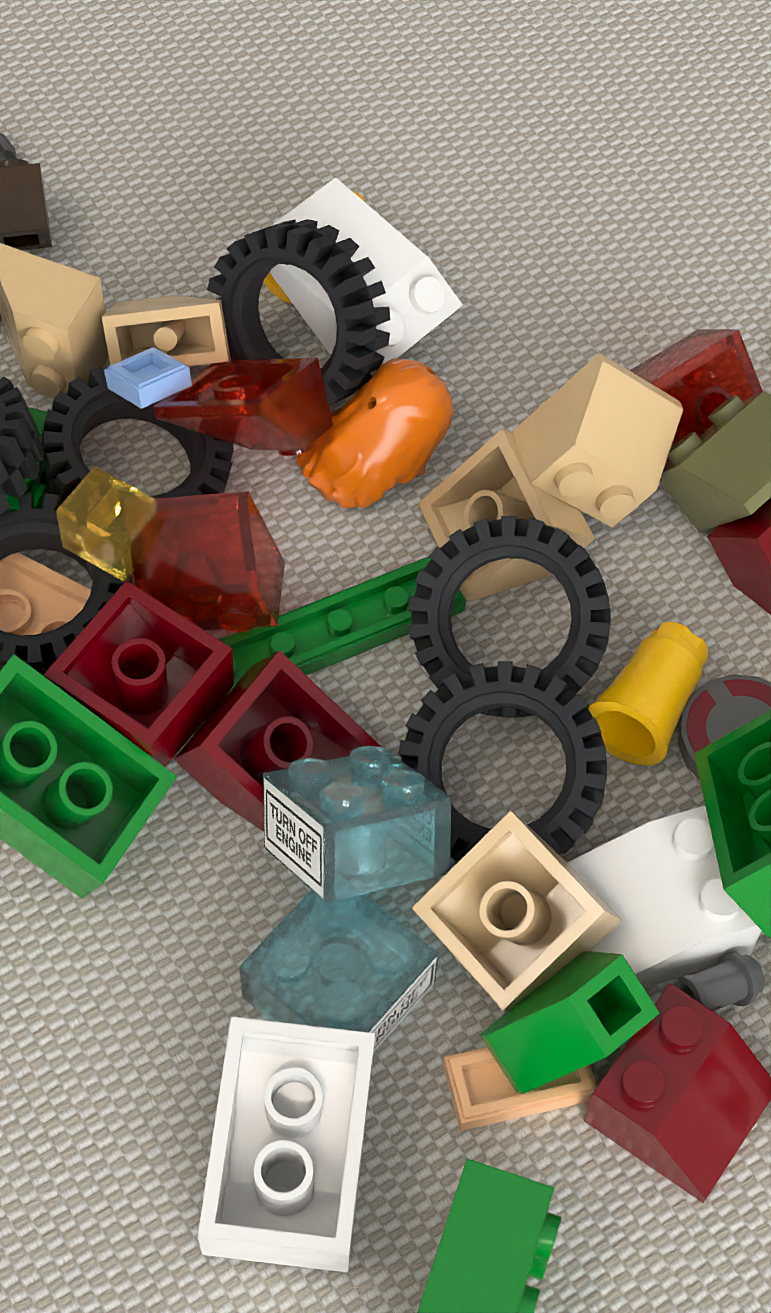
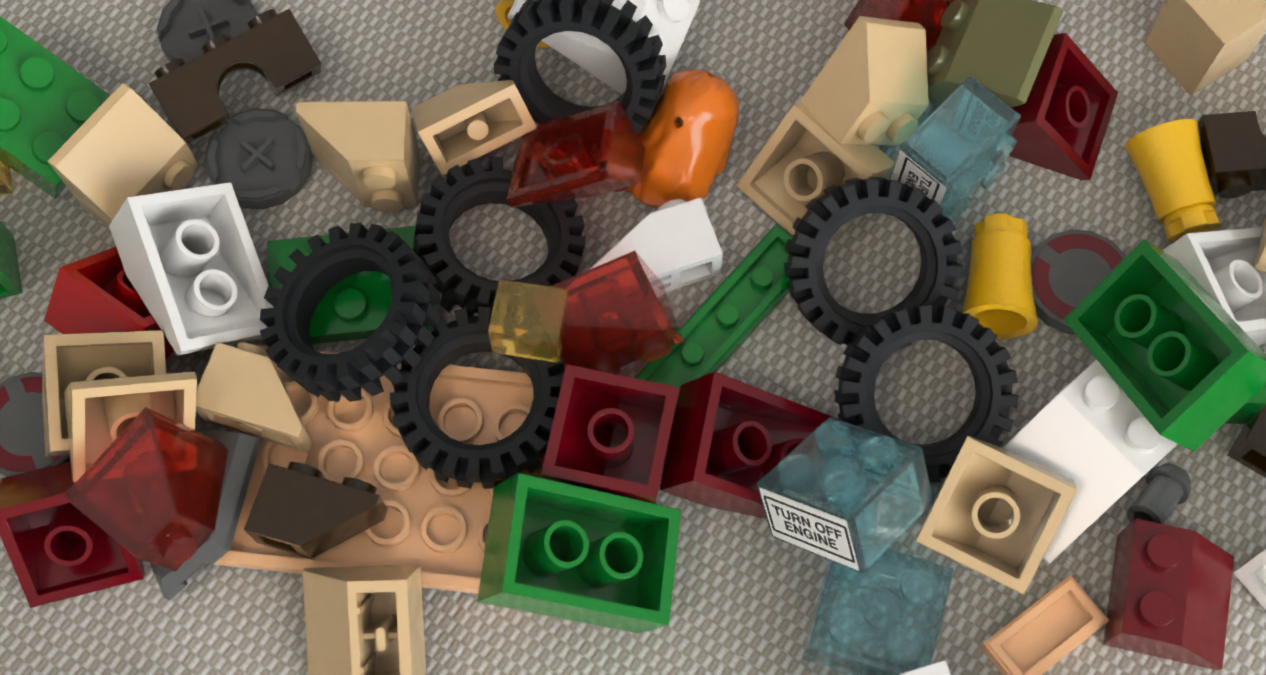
camera: 20 degrees left, 10 degrees up
(147, 377) = (486, 173): light blue tile -> none
(316, 531) = (674, 244): none -> white slope
(570, 1021) = (1078, 580): green slope -> none
(659, 543) = (958, 148): none -> clear light blue brick

